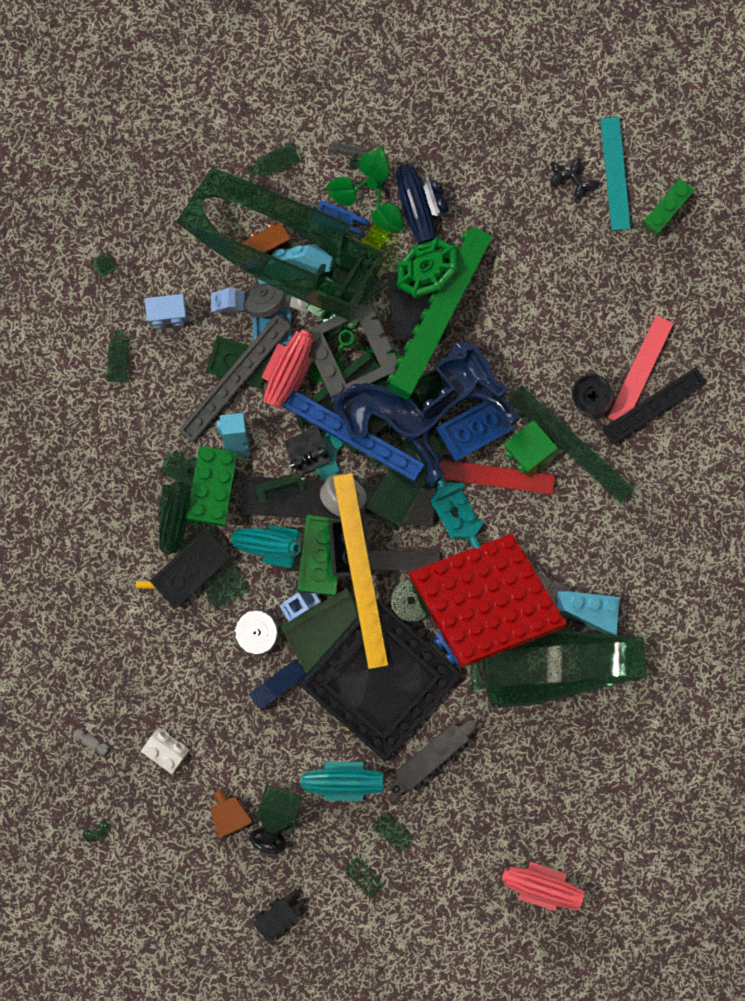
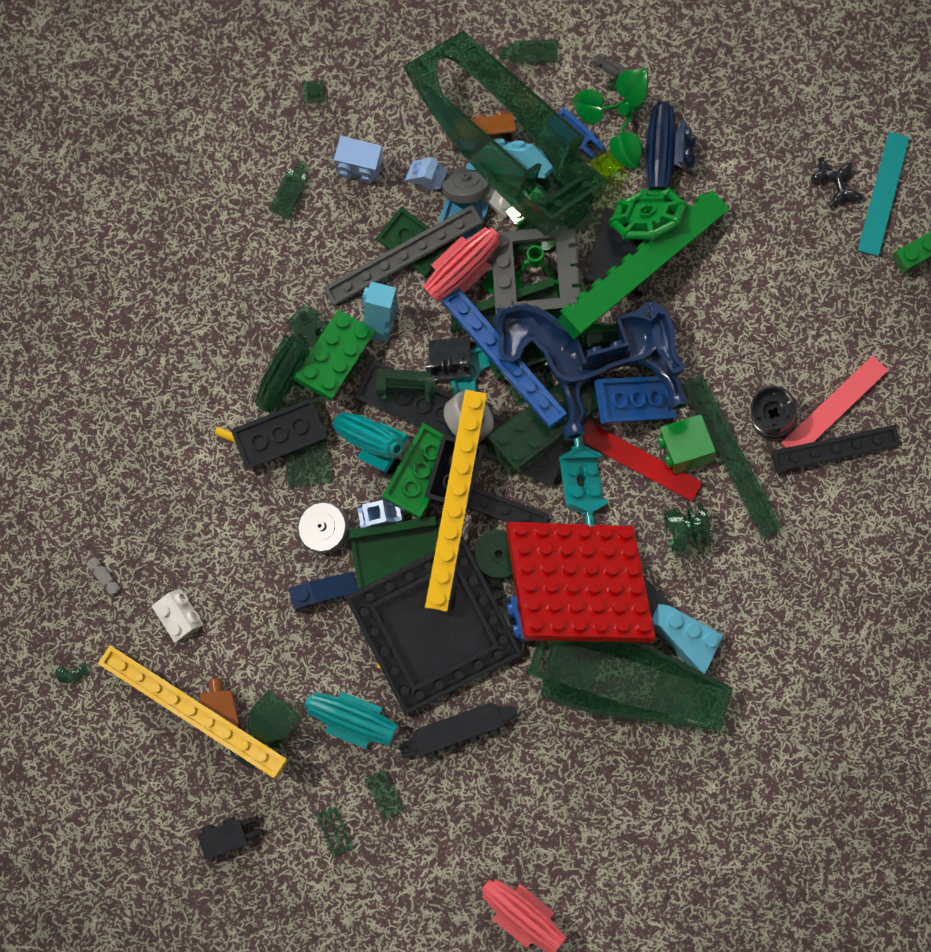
camera: 25 degrees right, 5 degrees down
(211, 826) = (193, 712): none -> yellow plate
(558, 519) = (688, 528): none -> clear green wheel

